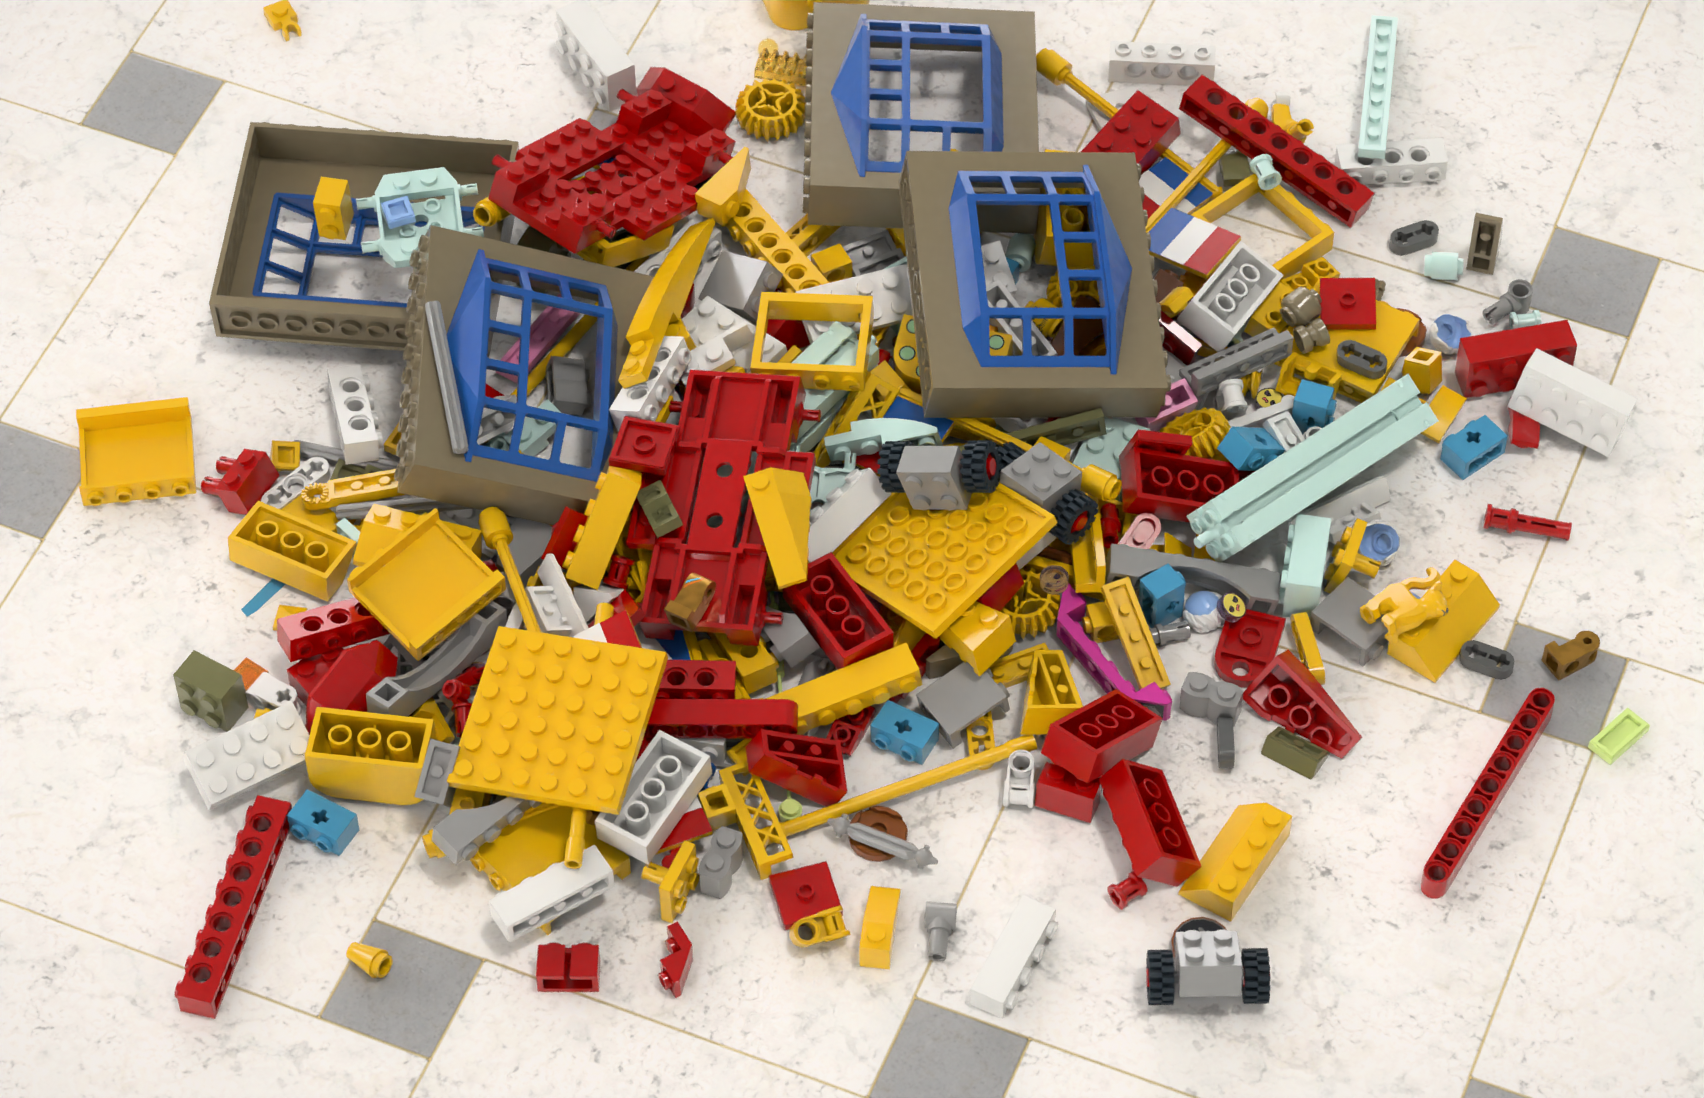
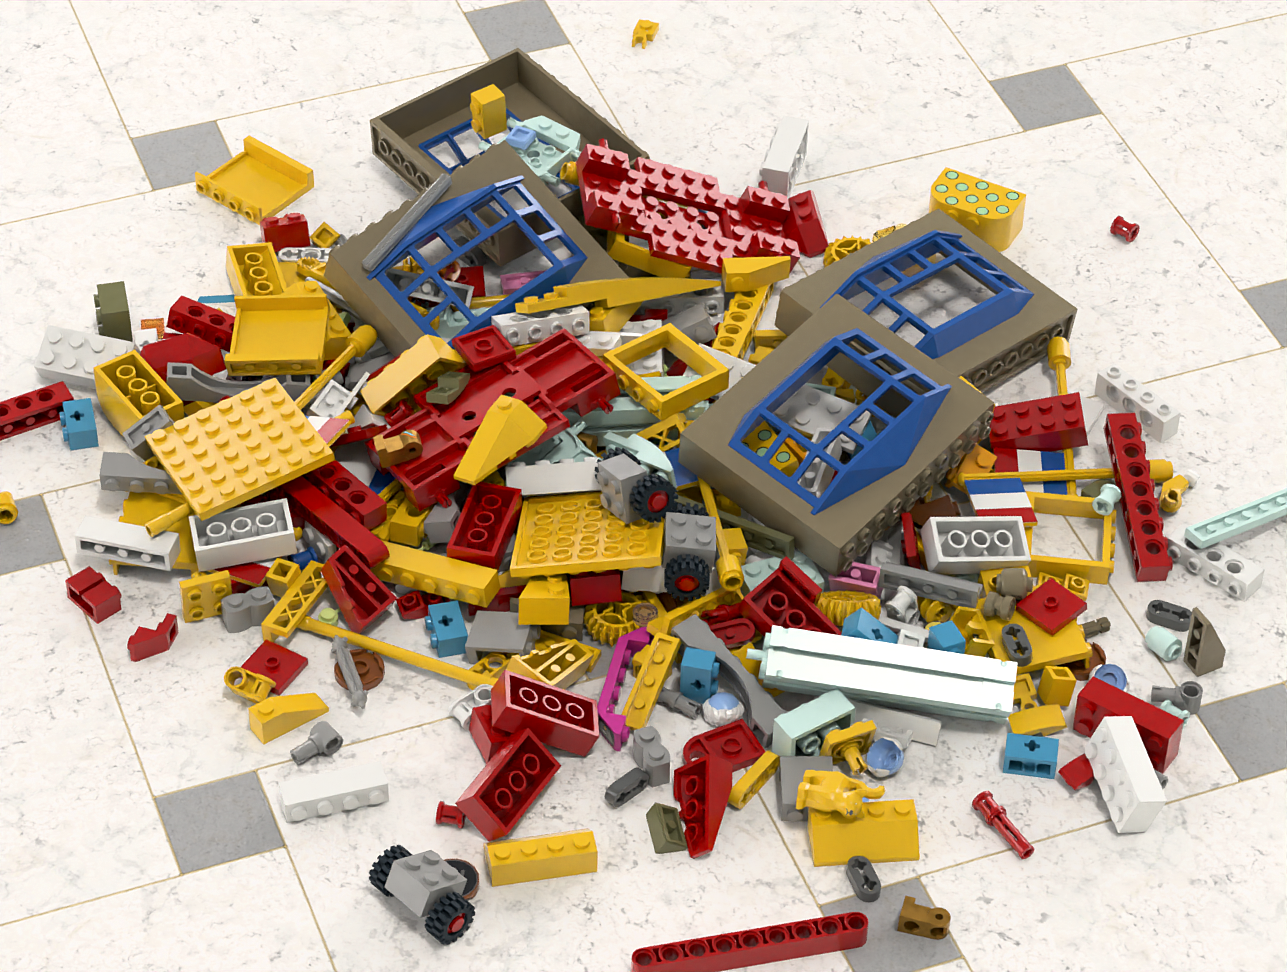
camera: 45 degrees right, 10 degrees down
(1176, 301) = (922, 514): yellow slope -> none
(1231, 607) = (735, 716): tile -> none

